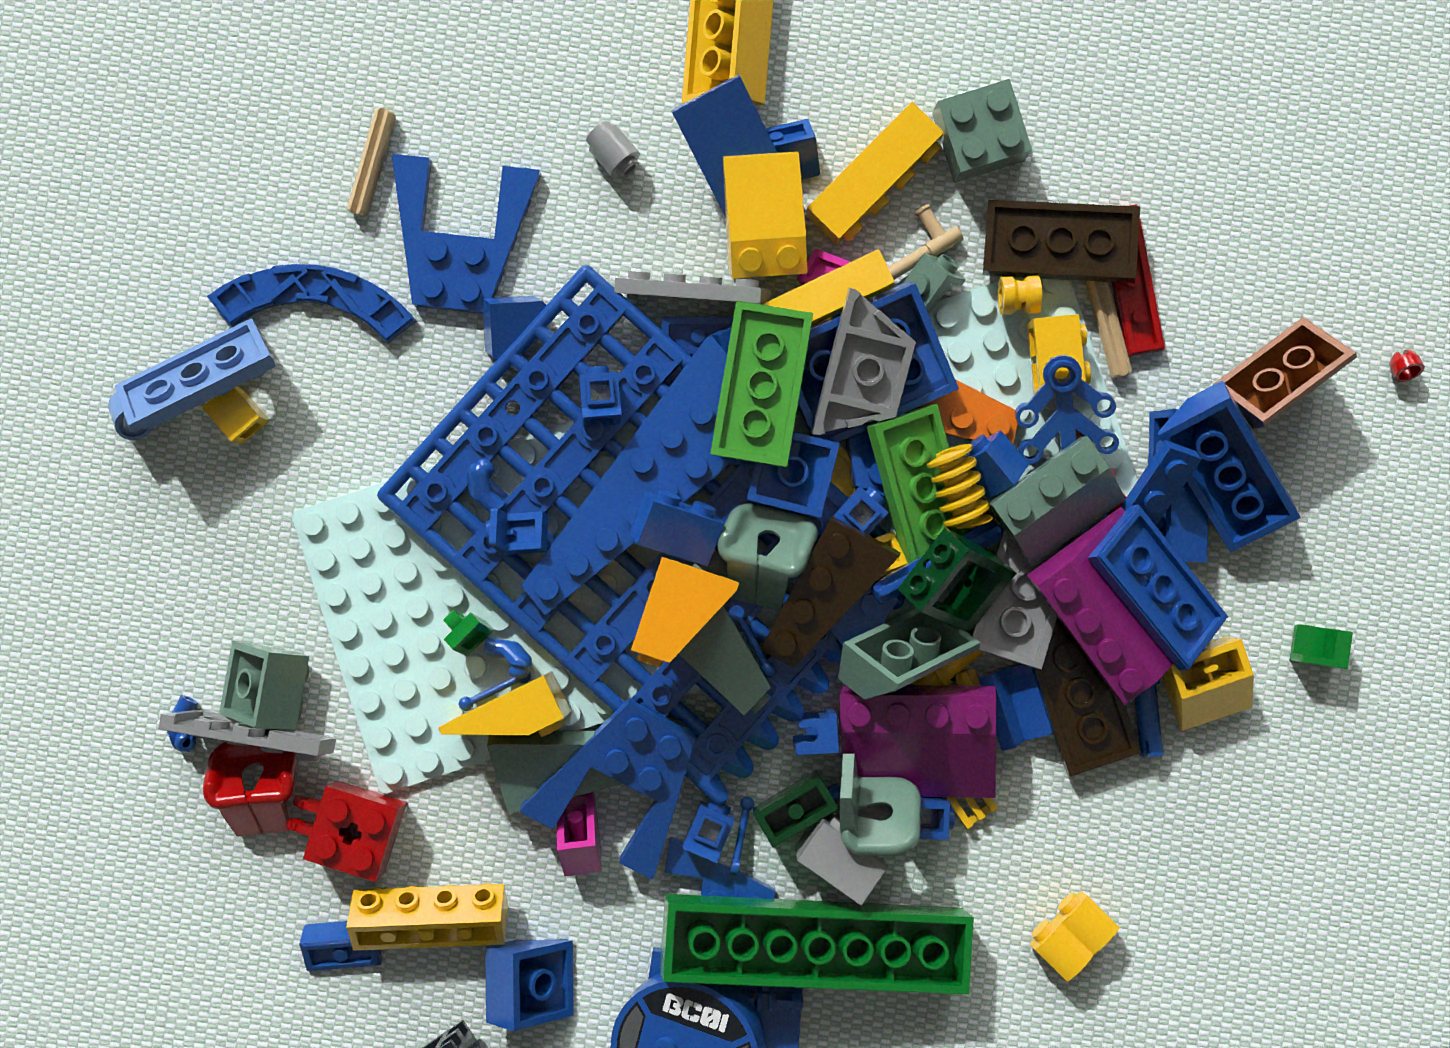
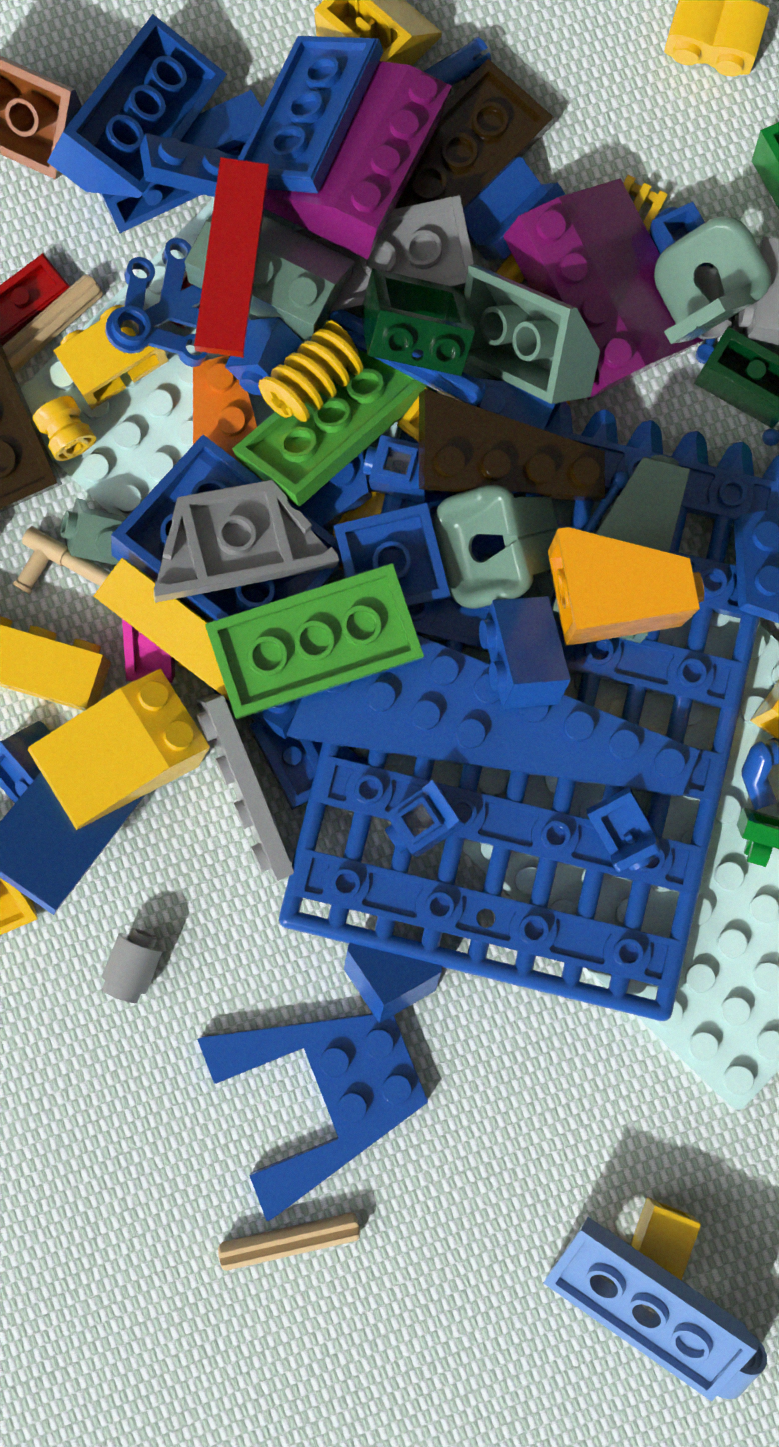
camera: 120 degrees left, 5 degrees down
(312, 285) = (466, 1233): blue tile -> none
(479, 485) = (595, 904): blue arm -> none
(820, 731) = (659, 388): blue hinge -> none
(1069, 469) = (231, 257): none -> red tile

